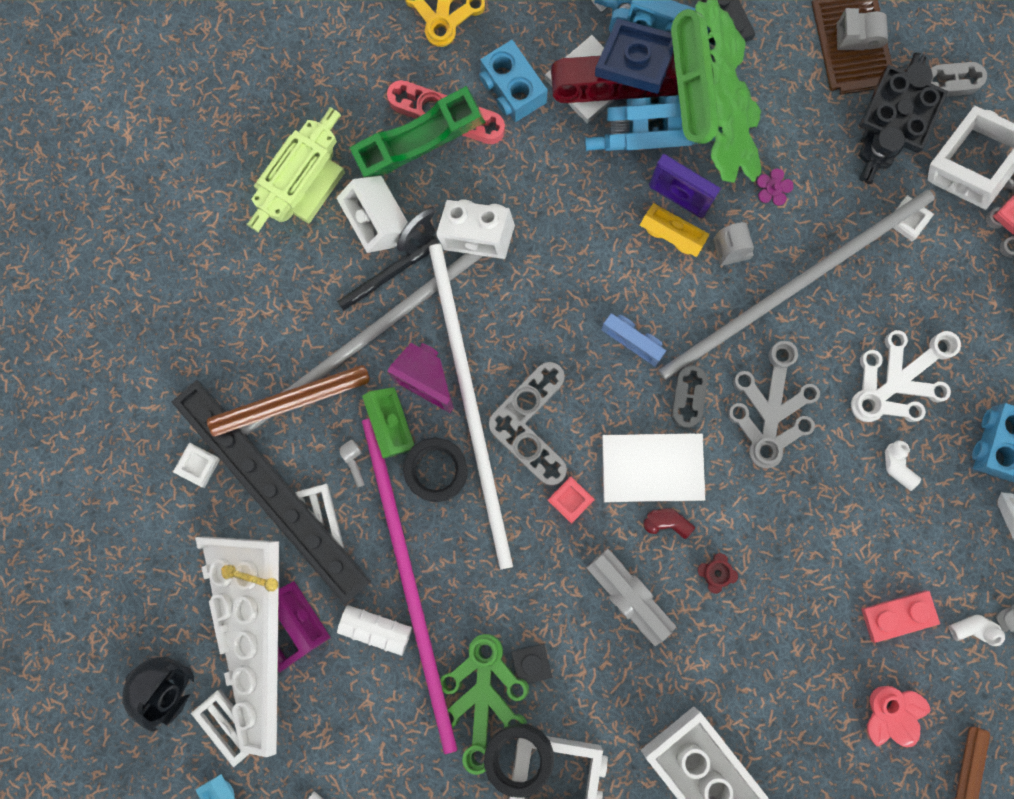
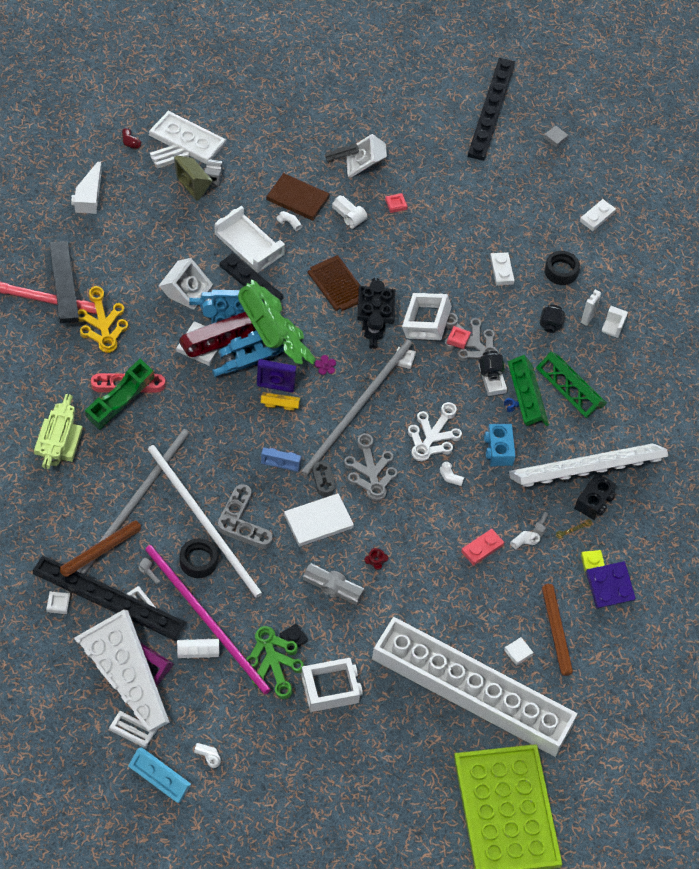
camera: 30 degrees left, 25 degrees down
(150, 695) = (83, 715): black cylinder -> none
(229, 571) = (104, 639): clear yellow hinge -> none
(372, 213) = (110, 441): white brick -> none
(388, 422) = (161, 542): bright green plate -> none
(414, 254) = (140, 457): black piece -> none
(423, 374) = (174, 513): magenta slope -> none
(476, 228) = (171, 431): white brick -> none
(498, 778) = (302, 657): black tyre -> none
(519, 79) = (165, 357): dark azure brick -> none
(571, 500) = (280, 550): coral tile -> none
(636, 56) = (225, 319): dark blue plate -> none
(668, 519) = (332, 542): dark red arm -> none
(733, 244) = (315, 394): light grey leg -> none
(861, 30) = (339, 276): light grey leg -> none
(899, 719) = (503, 596): coral plate -> none
(957, 71) = (398, 284): light grey beam -> none

